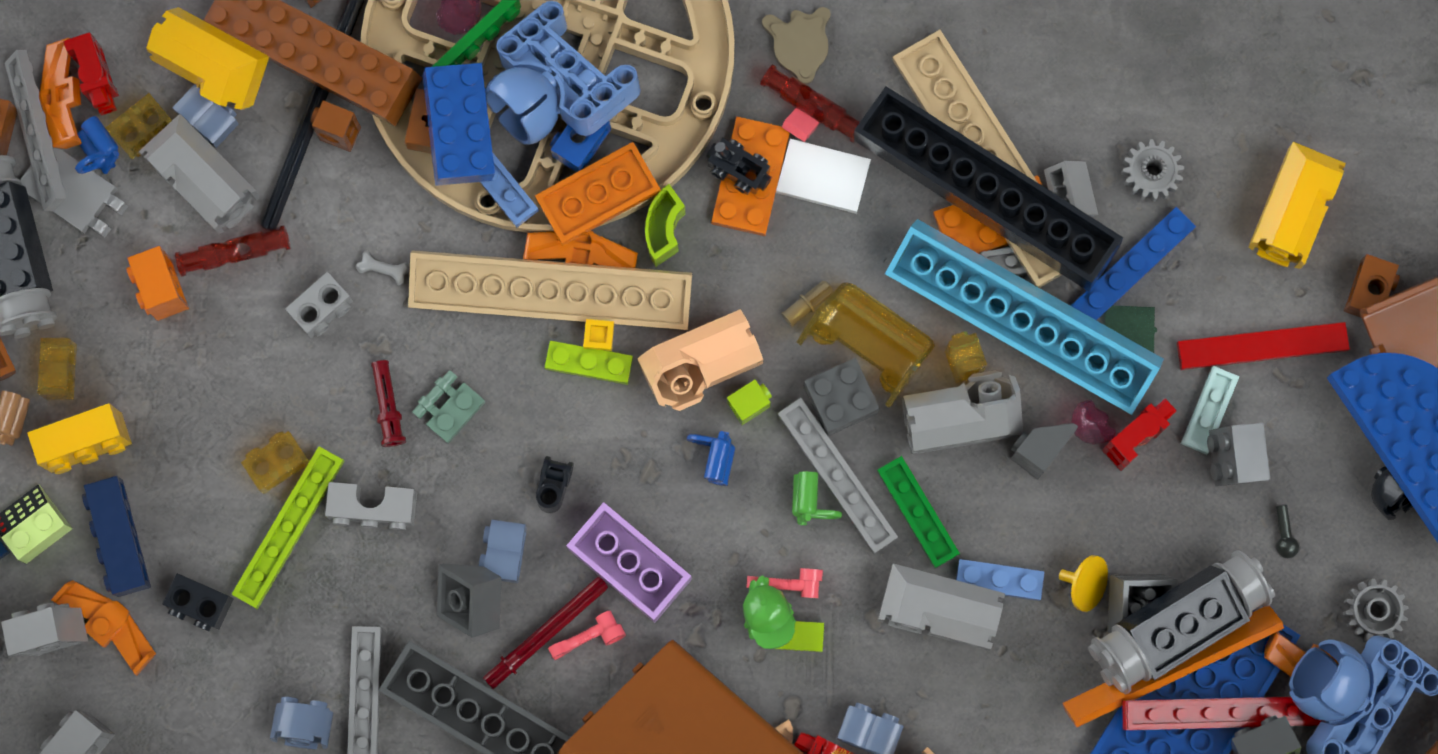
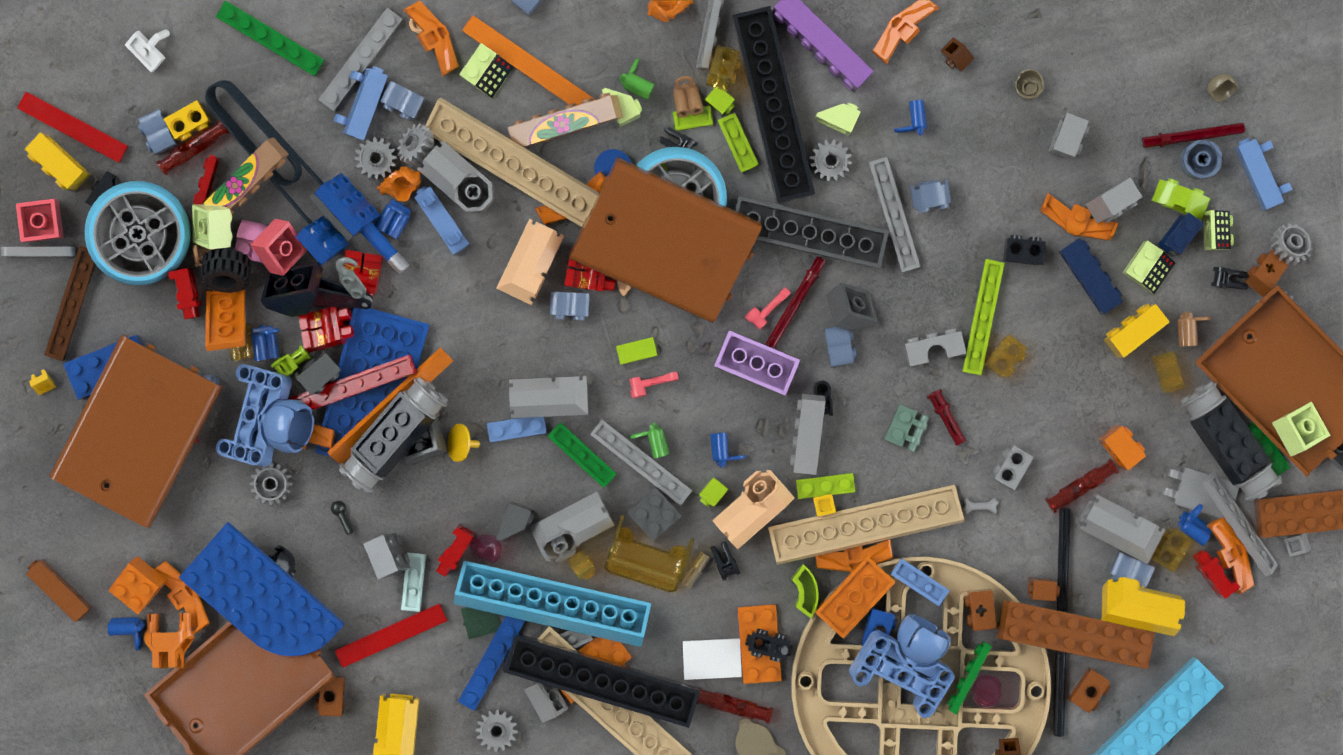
camera: 160 degrees right, 10 degrees up
(458, 124) = (960, 611): blue brick -> none
(588, 438) = (808, 434): none -> light grey brick
(766, 294) = (723, 566): none -> black piece
(768, 615) = (657, 357): bright green hair -> none
(800, 124) = (737, 688): coral tile -> none

